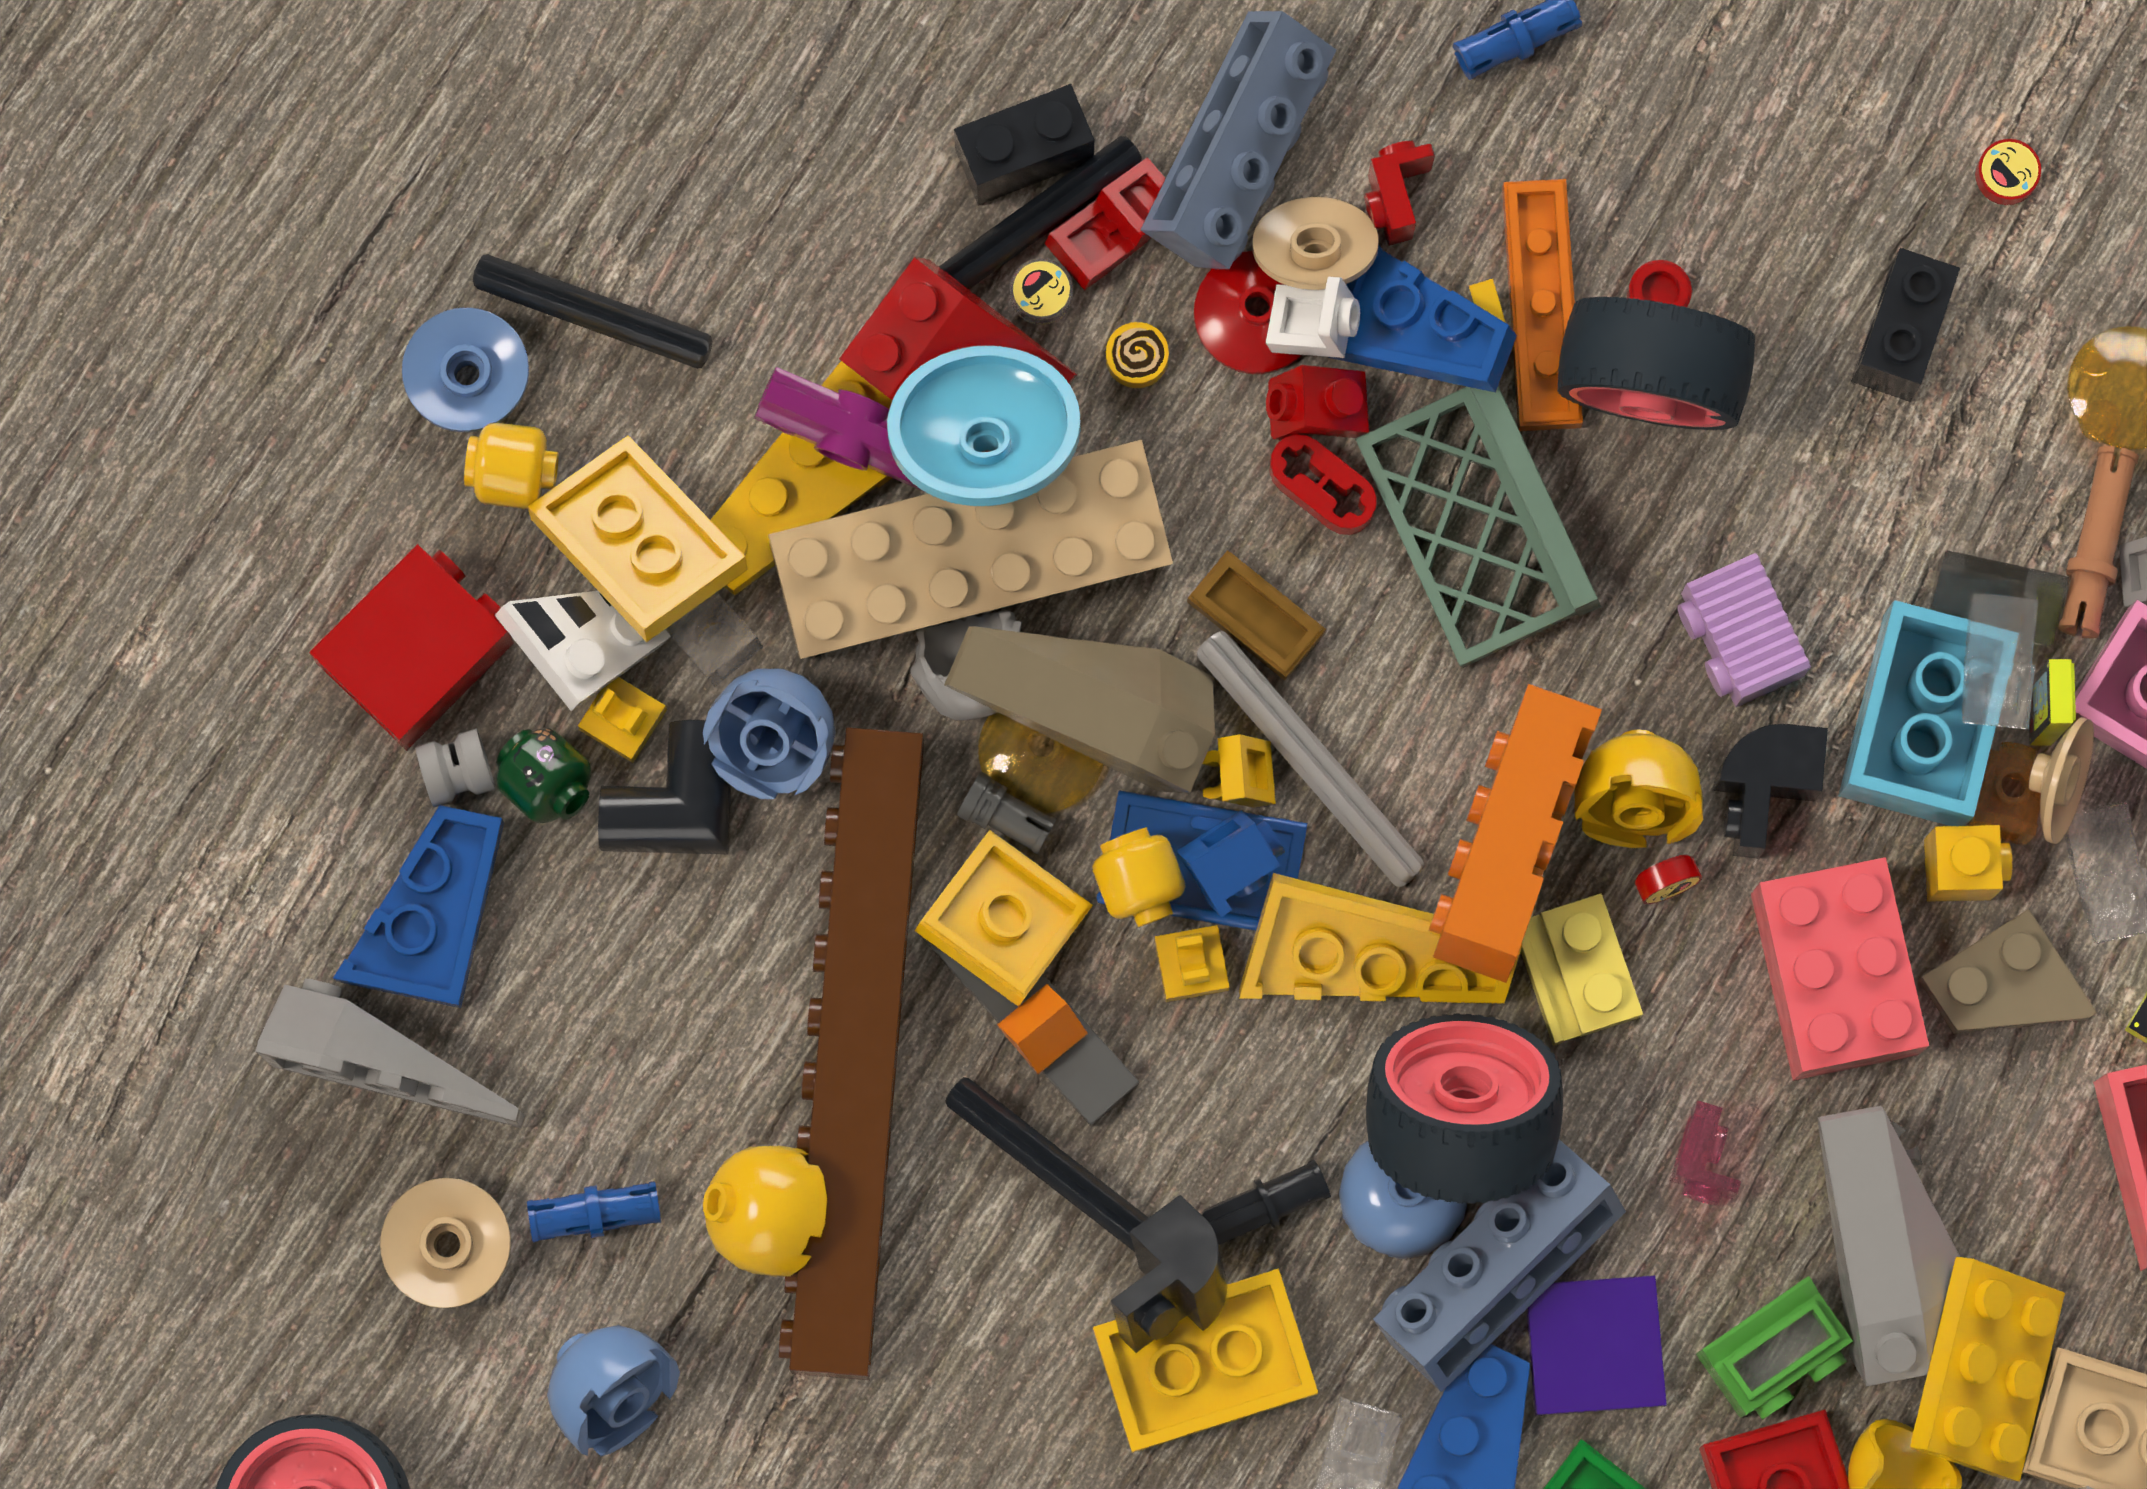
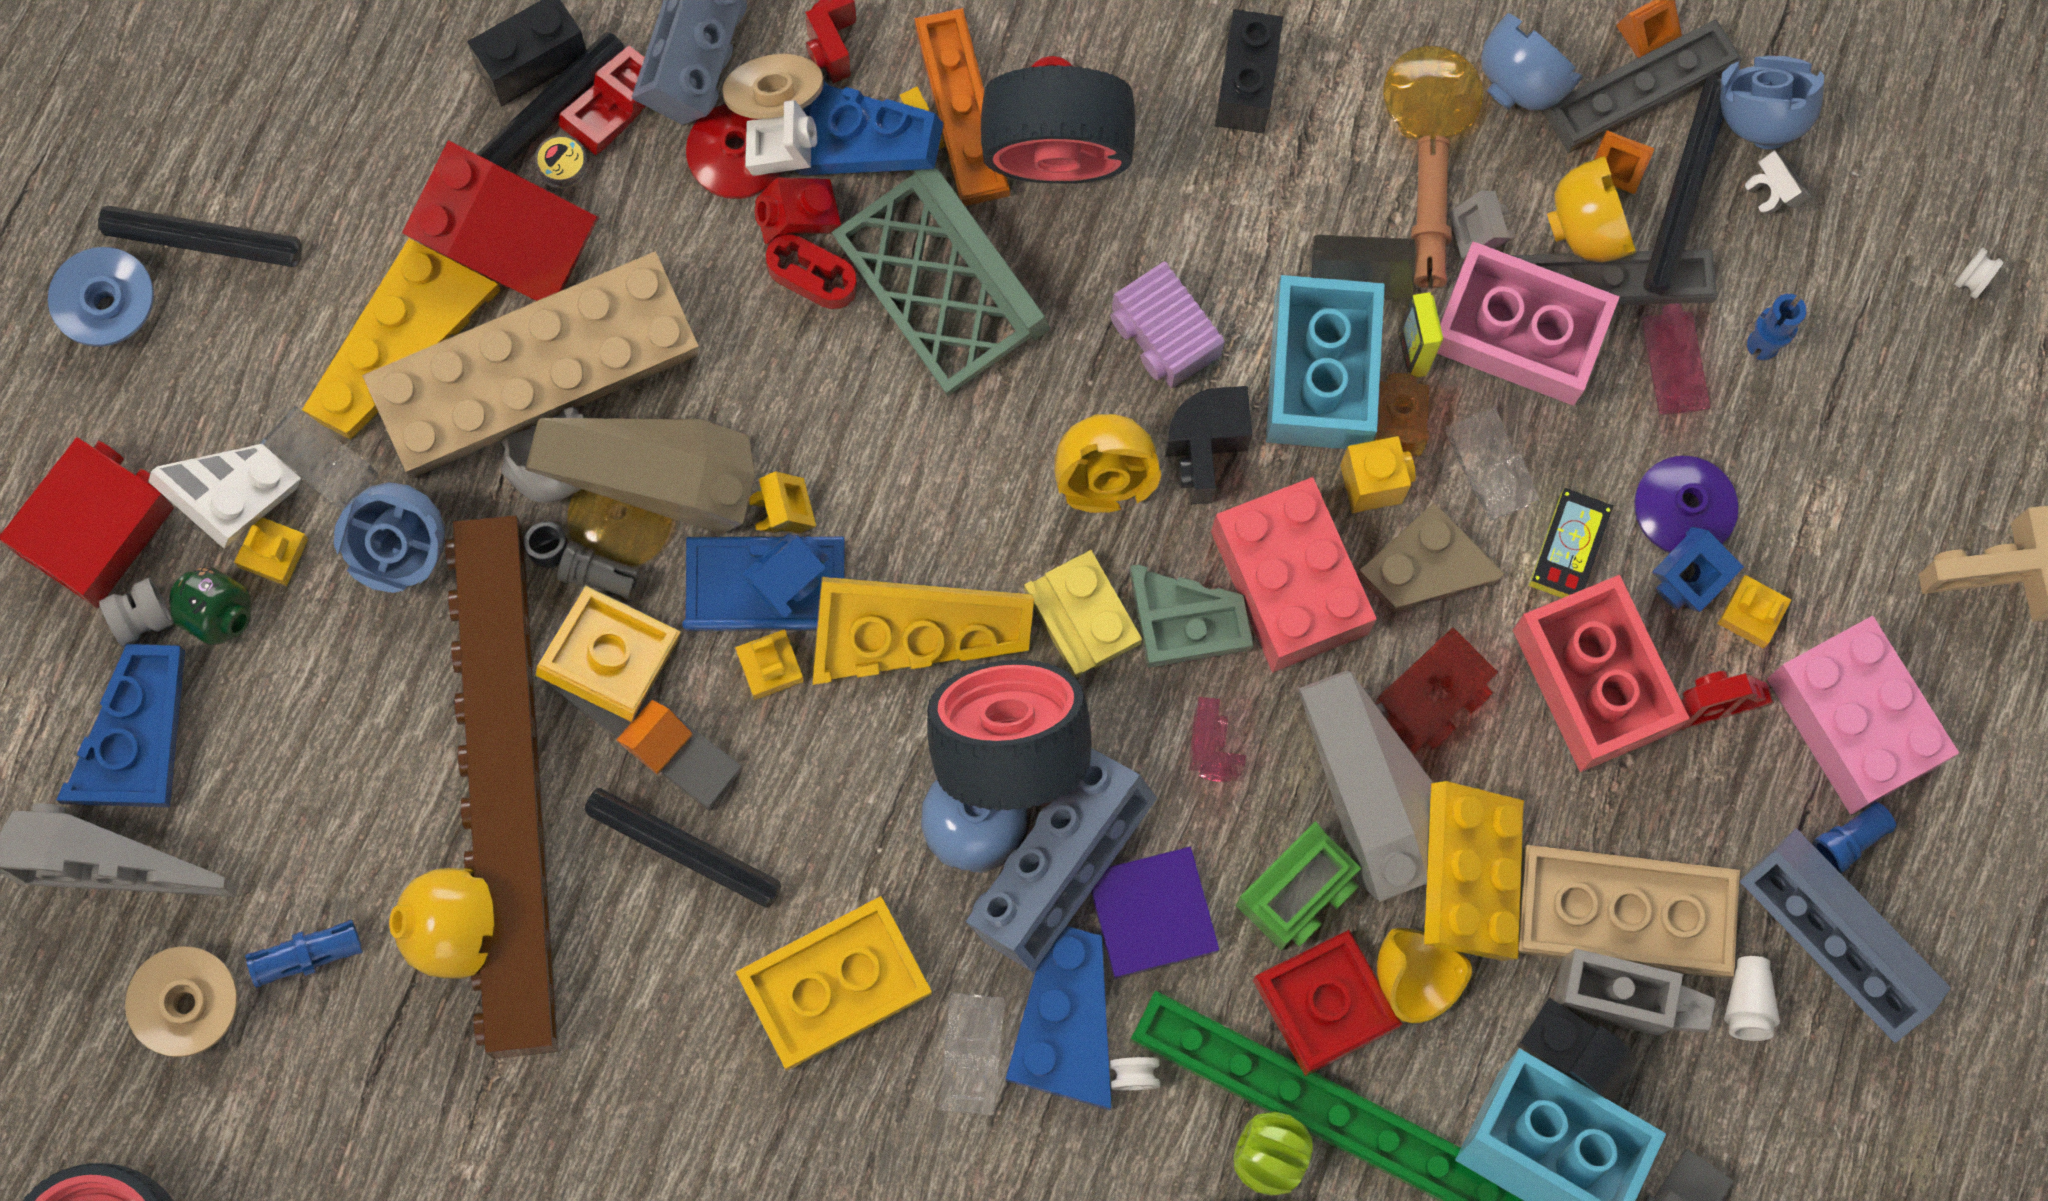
camera: 15 degrees left, 5 degrees down
(510, 465) = (147, 364): yellow head -> none
(607, 1385) = (335, 1096): medium blue cylinder -> none
(637, 538) = (259, 402): yellow plate -> none
(680, 818) = (330, 622): black brick -> none
(838, 423) = (420, 286): magenta piece -> none
(948, 761) = (545, 544): none -> black hinge
(981, 403) = (523, 259): medium azure dish -> none
(1137, 355) = (646, 197): tile -> none
(1138, 876) = (712, 599): yellow head -> none
(1180, 1280) = (798, 917): black brick -> none
(1256, 615) = (775, 382): pearl gold tile -> none
(1267, 1202) = (861, 846): black axle -> none
(1310, 759) = (838, 486): light grey axle -> none
(1514, 833) = (1010, 508): orange wedge -> none
(1667, 879) = (1142, 529): red tile -> none
(1701, 999) = (1187, 620): none -> sand green wing
(1999, 660) = (1373, 304): clear slope -> none
(2016, 1120) = (1449, 665): none -> clear red brick
(2063, 779) = (1441, 390): tan dish -> none

